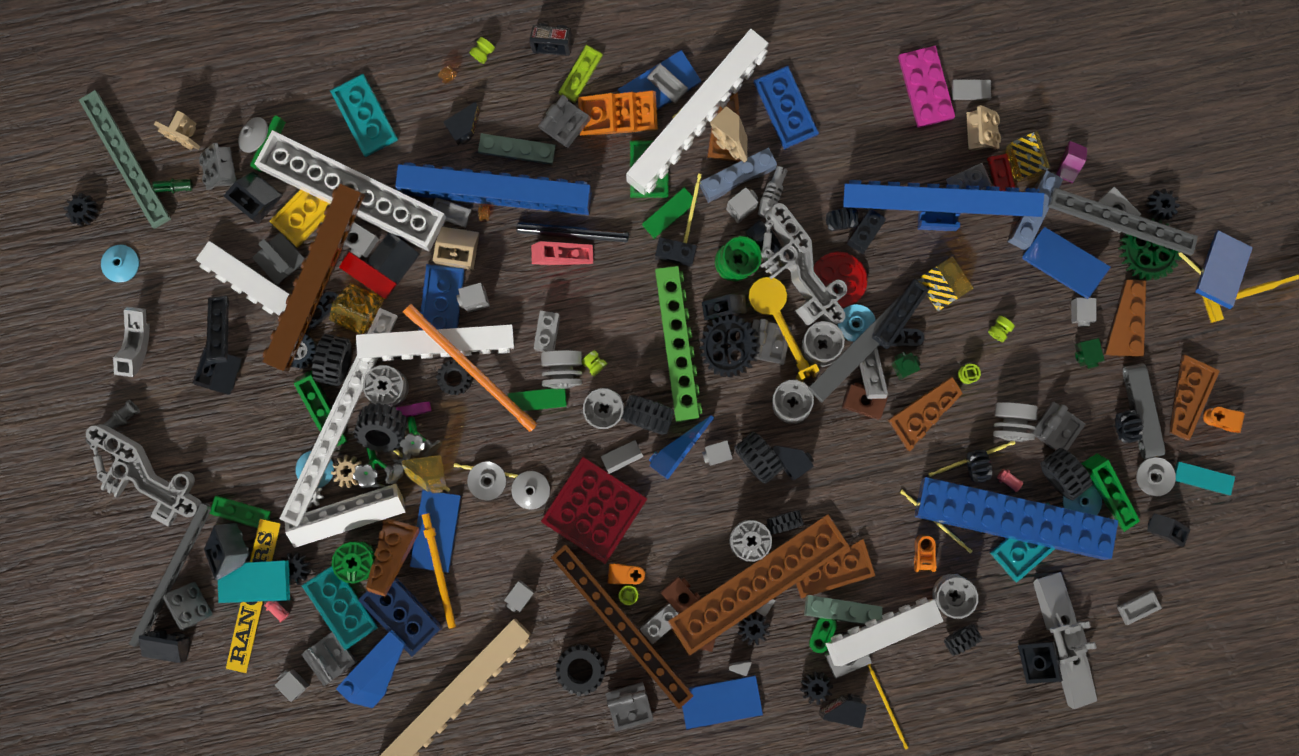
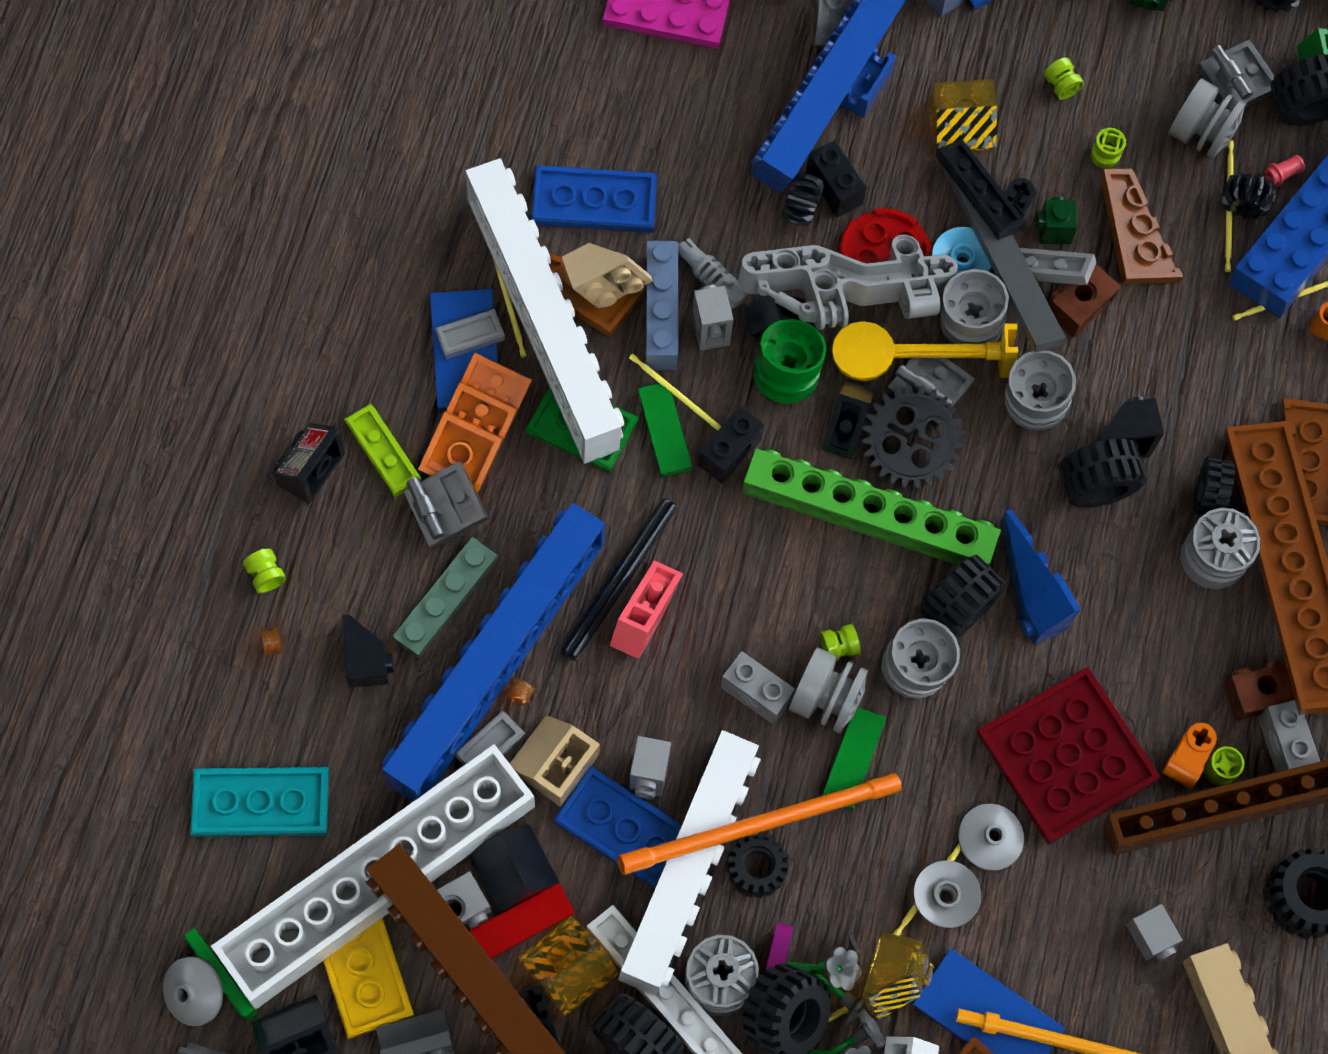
camera: 70 degrees left, 15 degrees down
(621, 456) = (1004, 673): light grey tile -> none
(717, 453) = (1064, 533): light grey brick -> none

